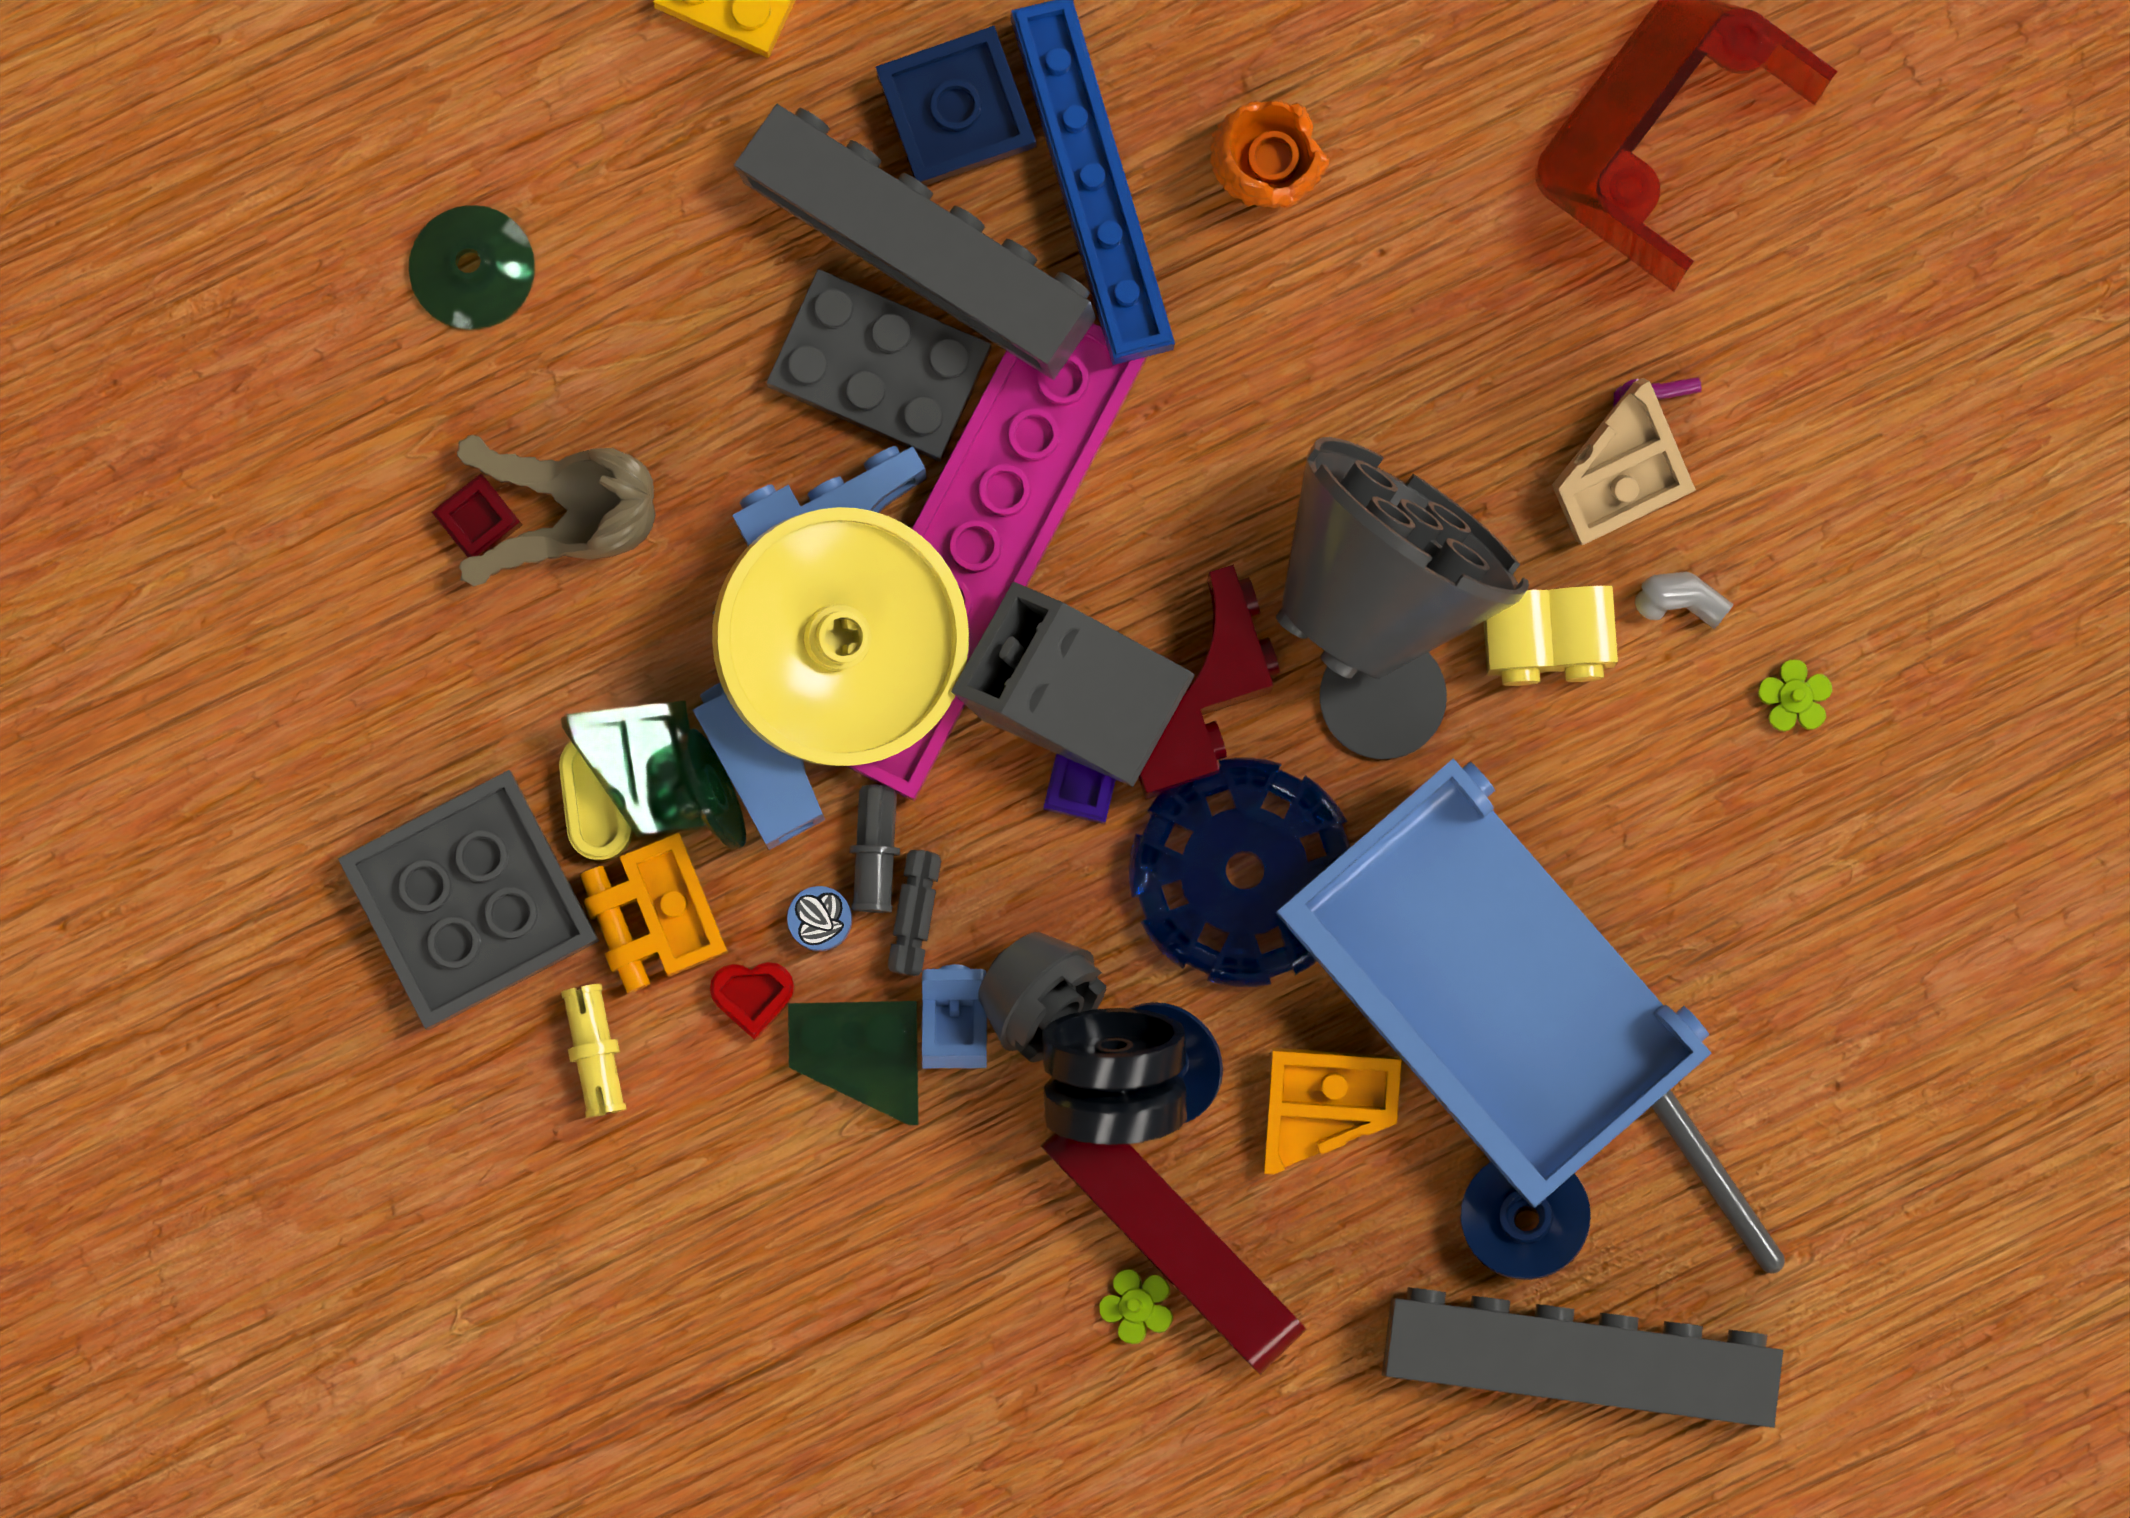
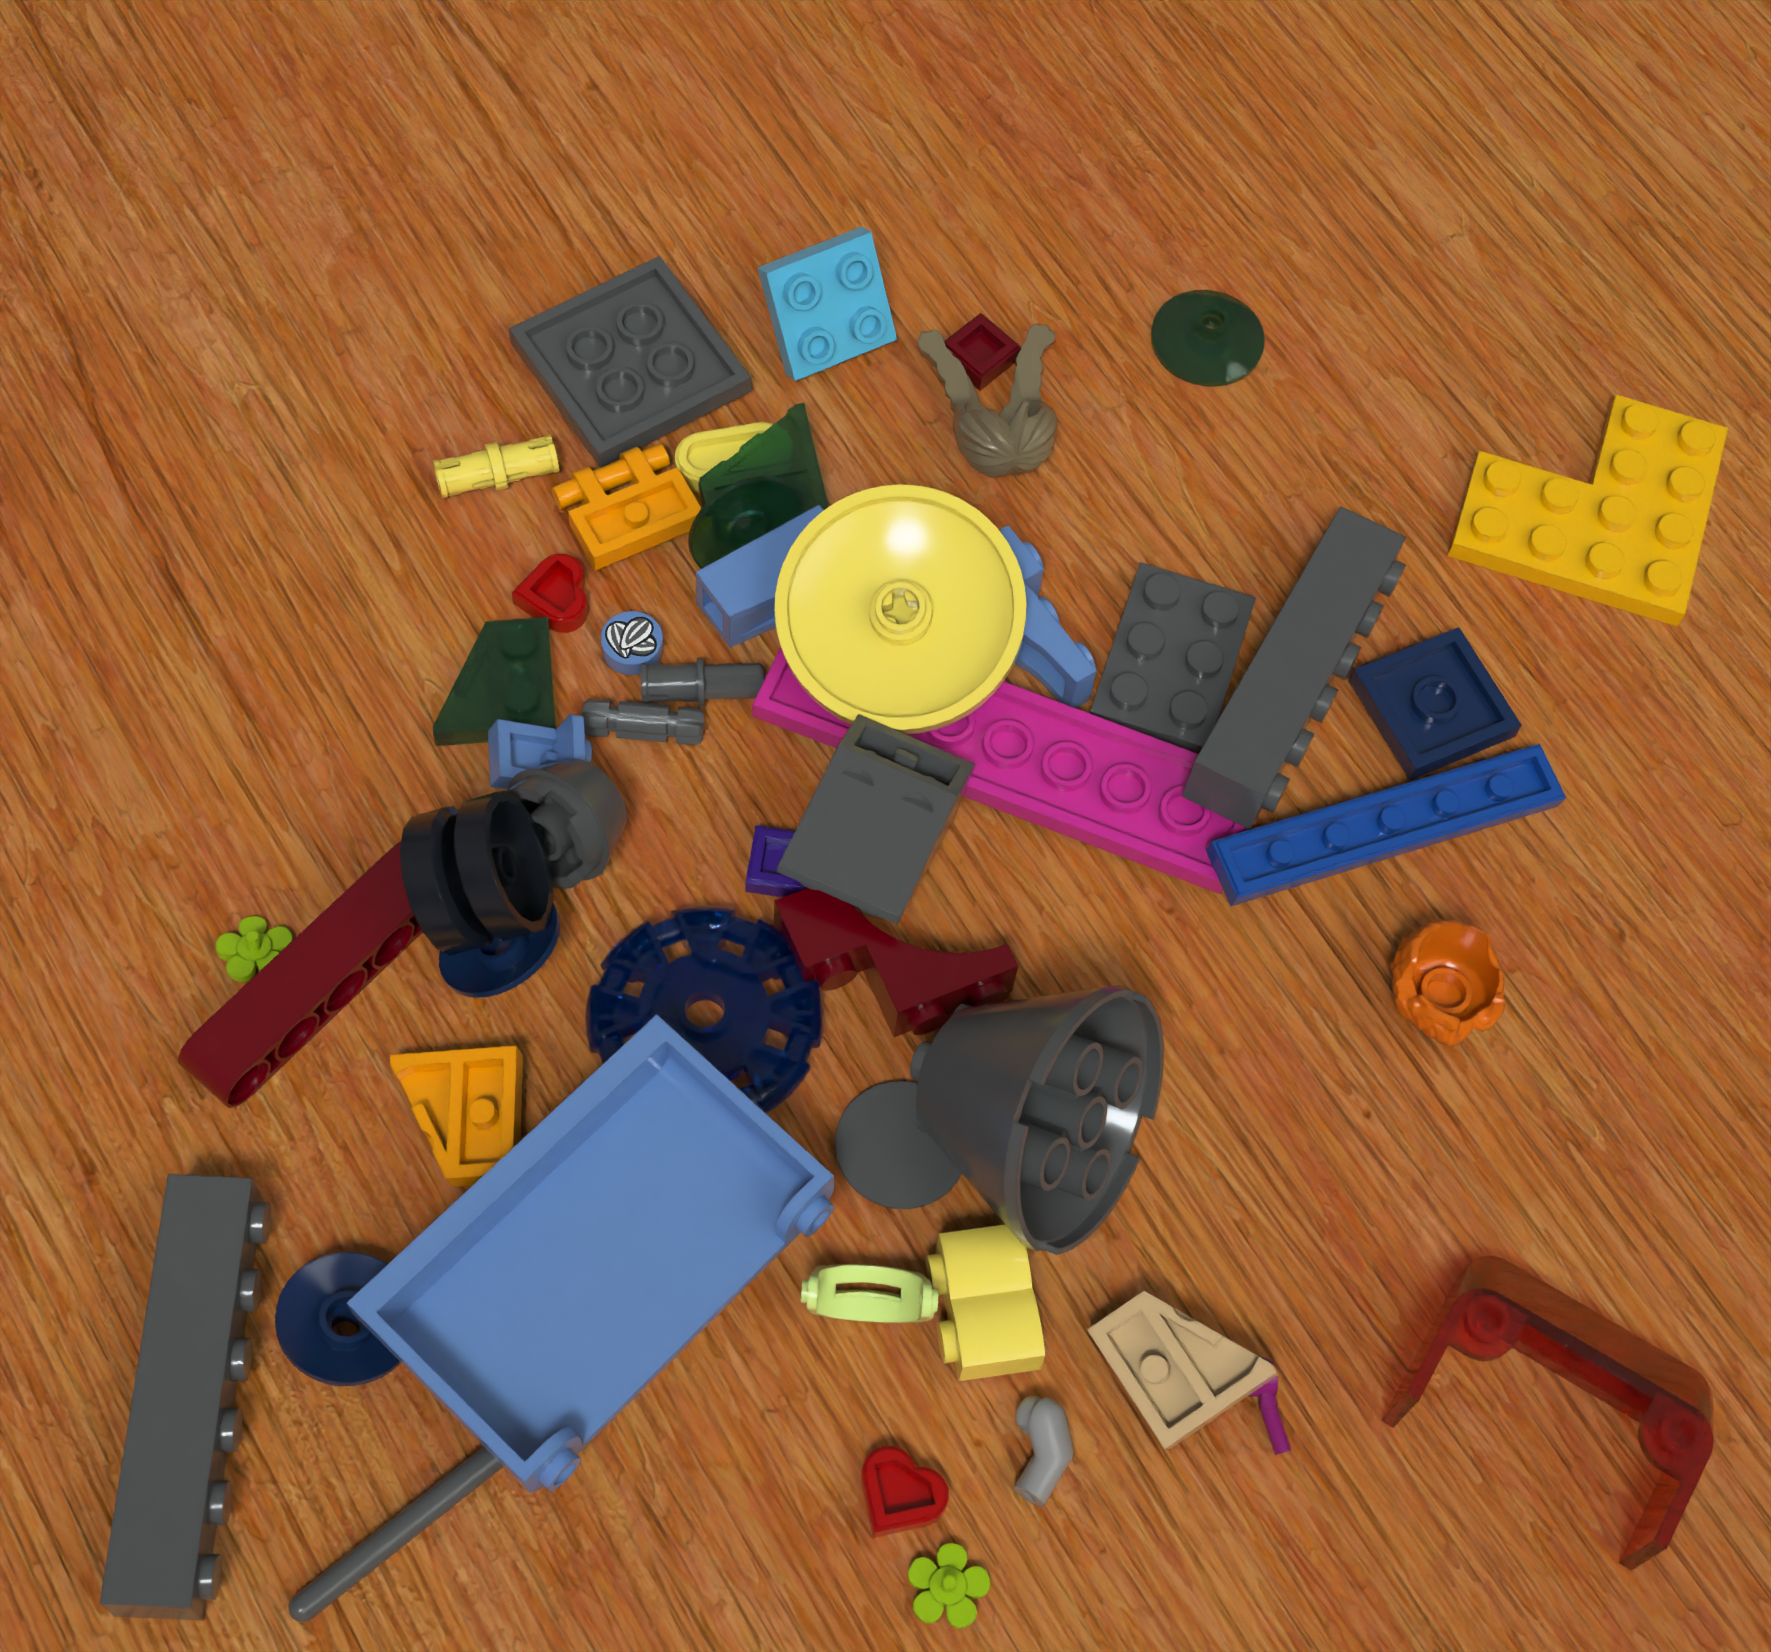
camera: 80 degrees right, 20 degrees down
(427, 678) = (827, 303): none -> medium azure plate
(1544, 704) = (913, 1305): none -> yellowish green helmet
(1711, 731) = (899, 1493): none -> red tile

